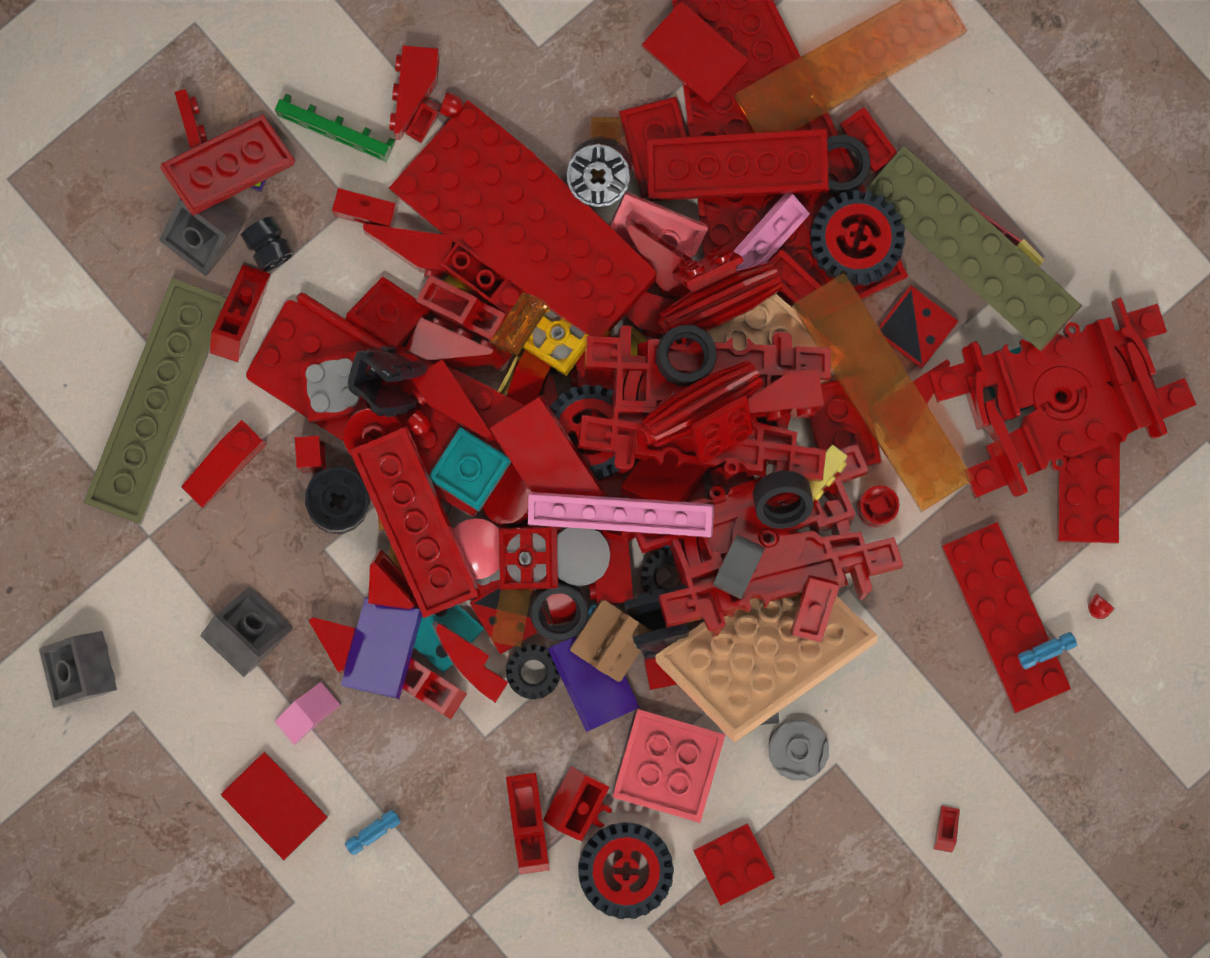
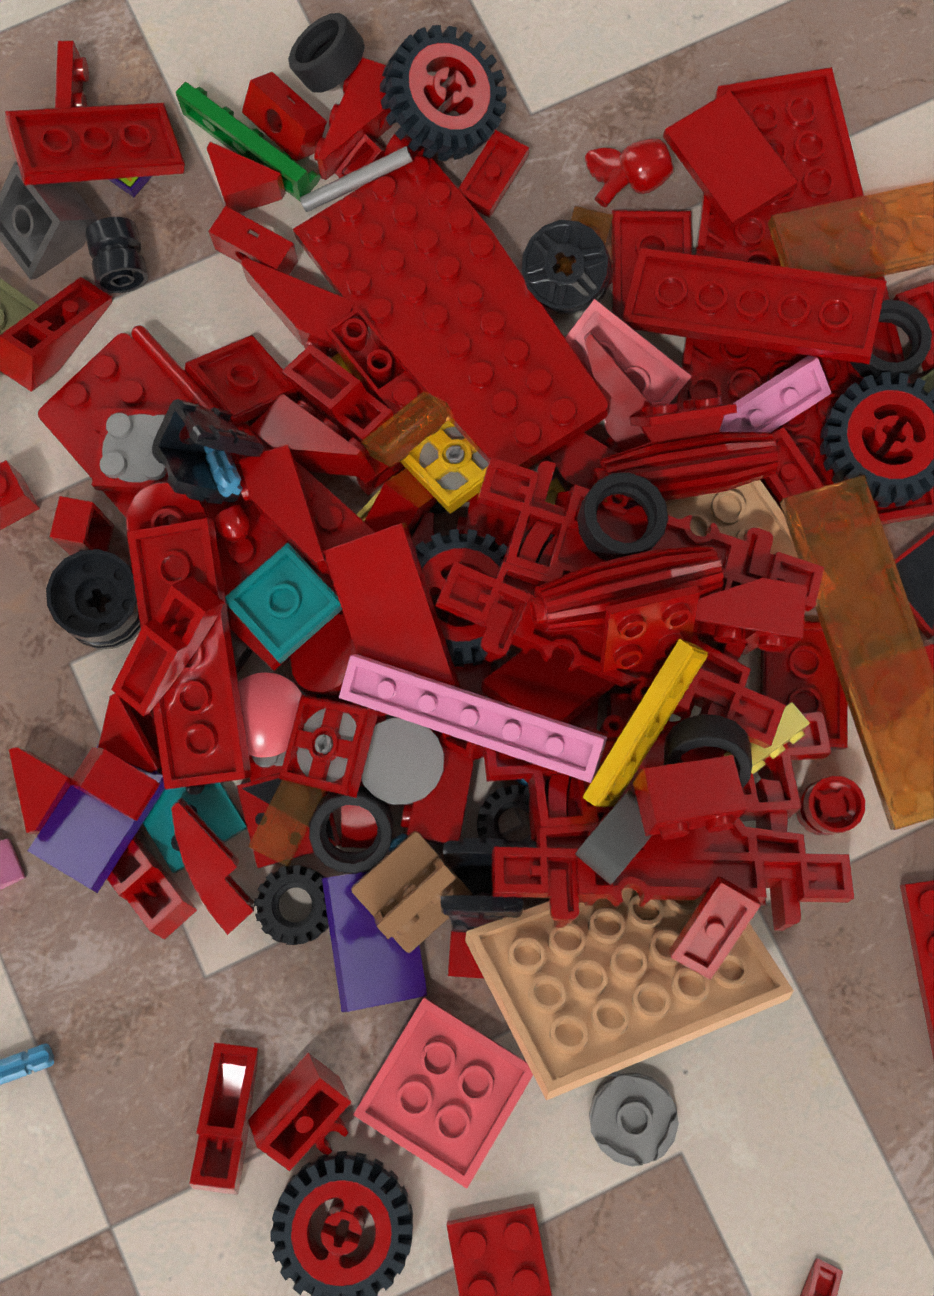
camera: 20 degrees right, 5 degrees down
(341, 162) = (244, 181): none -> red slope
(344, 97) = (269, 108): none -> red piece
(361, 41) = (326, 52): none -> black tyre
(387, 622) = (114, 783): none -> red slope
(401, 520) = (167, 644): none -> red slope
(405, 393) = (223, 471): none -> dark azure axle
(424, 138) = (356, 179): none -> light grey bar
(452, 66) = (417, 95): none -> wheel
(523, 105) = (493, 172): none -> red plate
(630, 73) = (641, 165): none -> red piece
(736, 489) = (645, 724): none -> yellow tile
(776, 529) = (690, 797): none -> red brick

